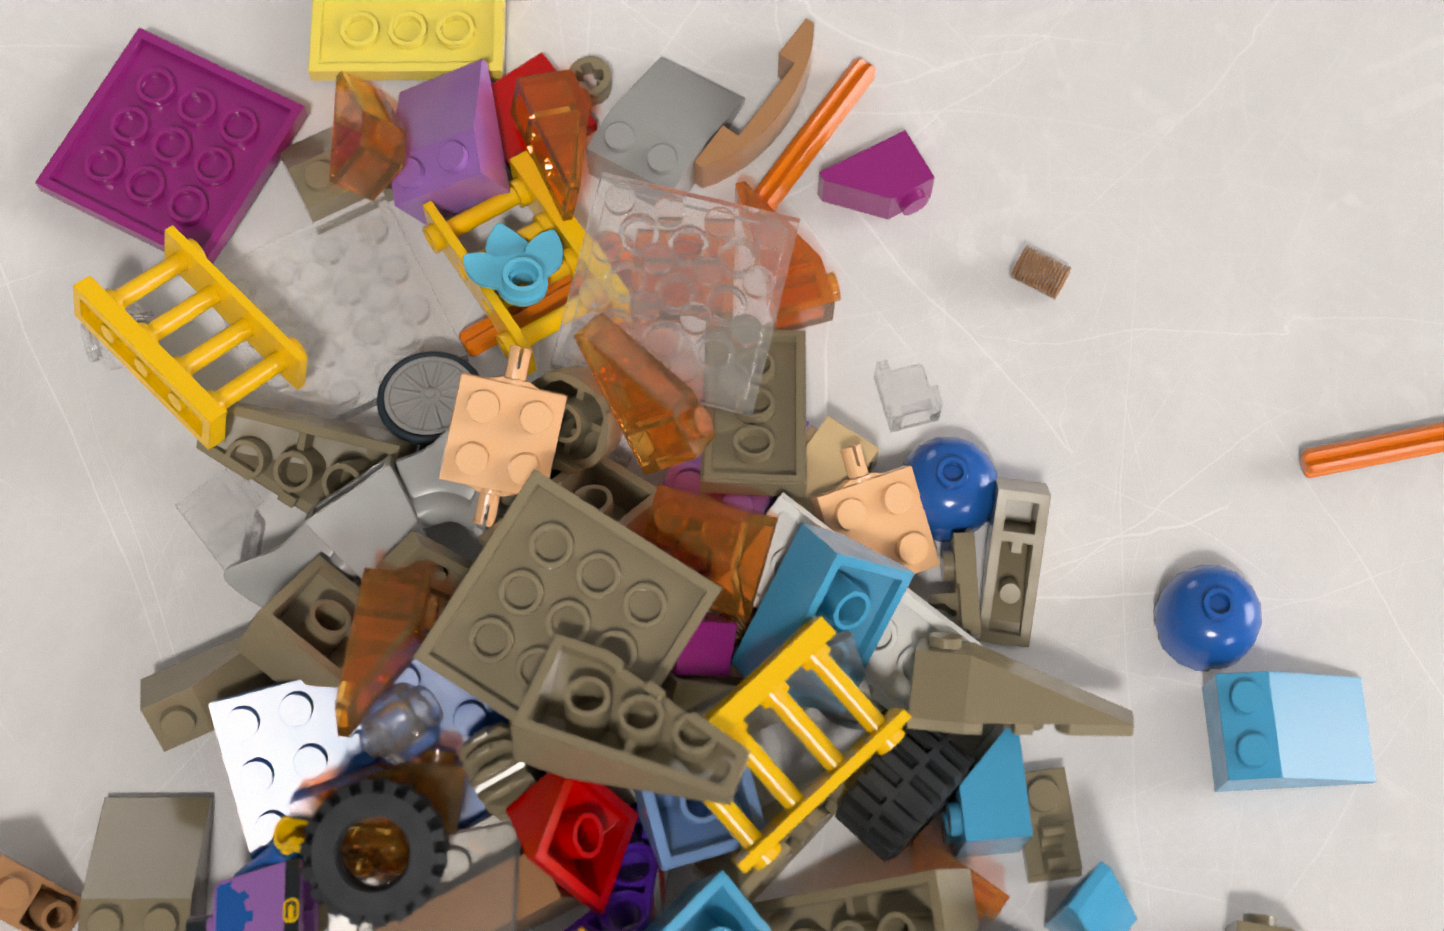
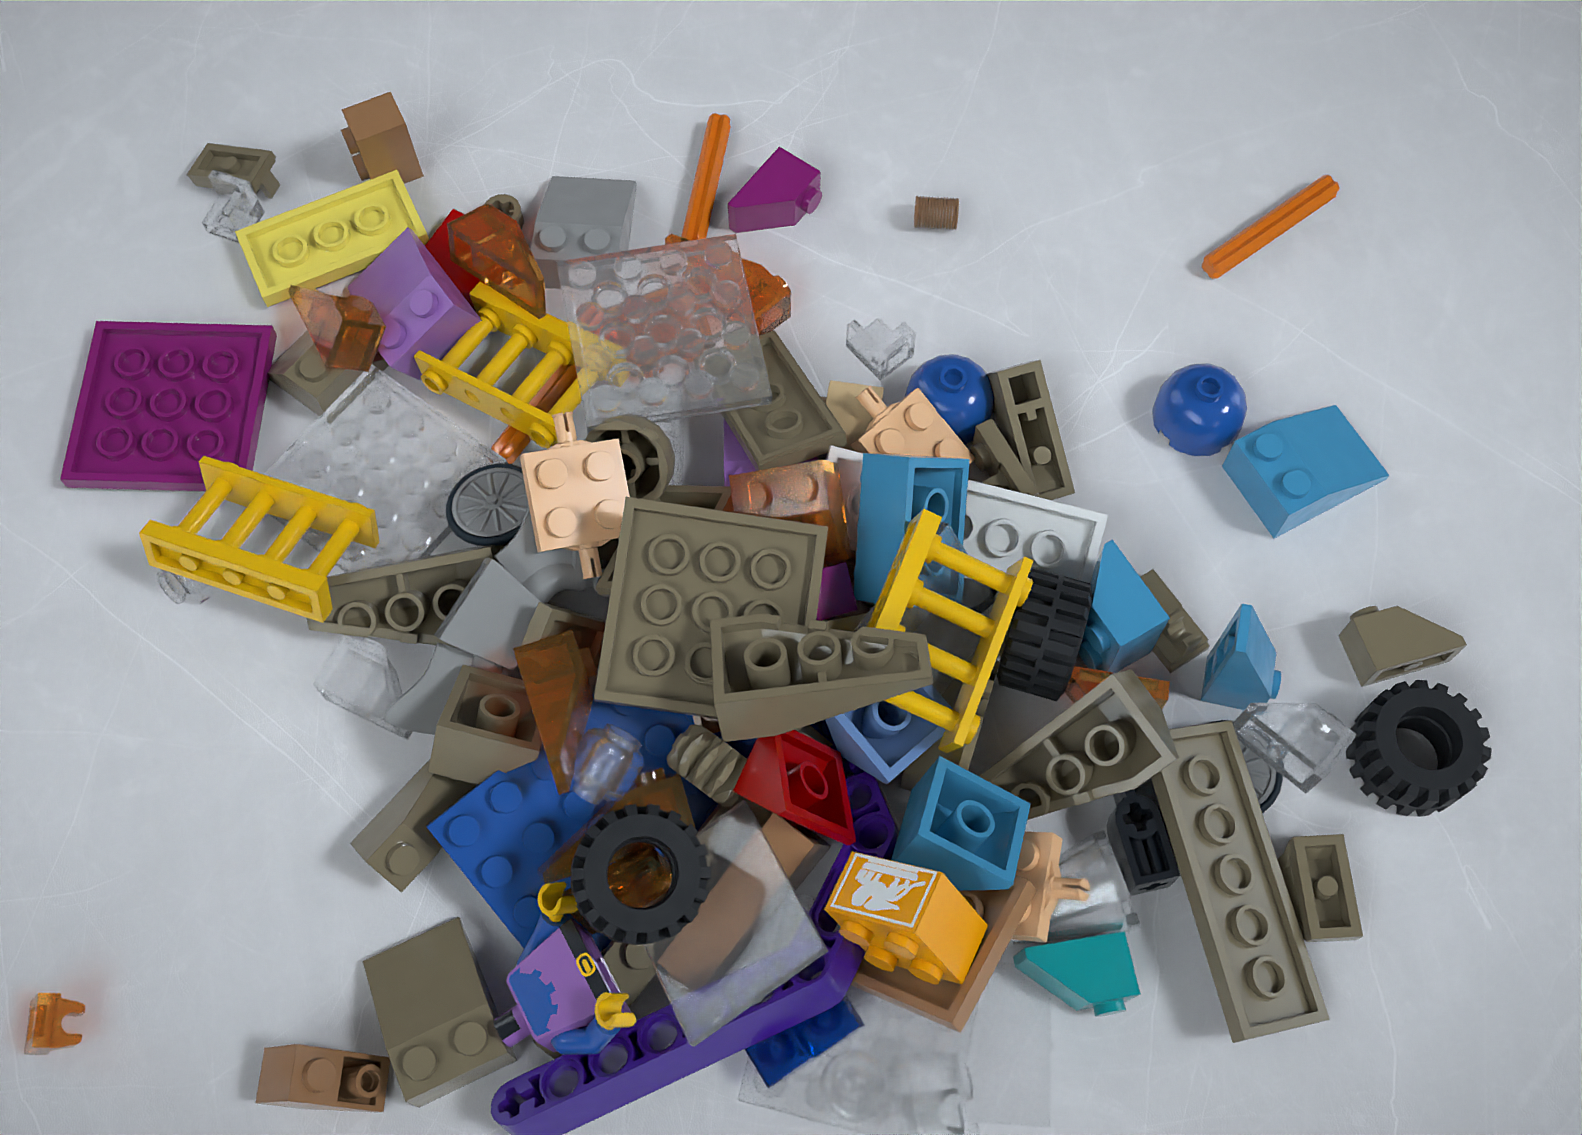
camera: 25 degrees left, 5 degrees down
(514, 261) = (517, 371): medium azure plate -> none
(648, 400) = (687, 418): clear orange slope -> none
(732, 152) = (649, 218): medium nougat slope -> none
(967, 685) = (1062, 527): dark tan wedge -> none

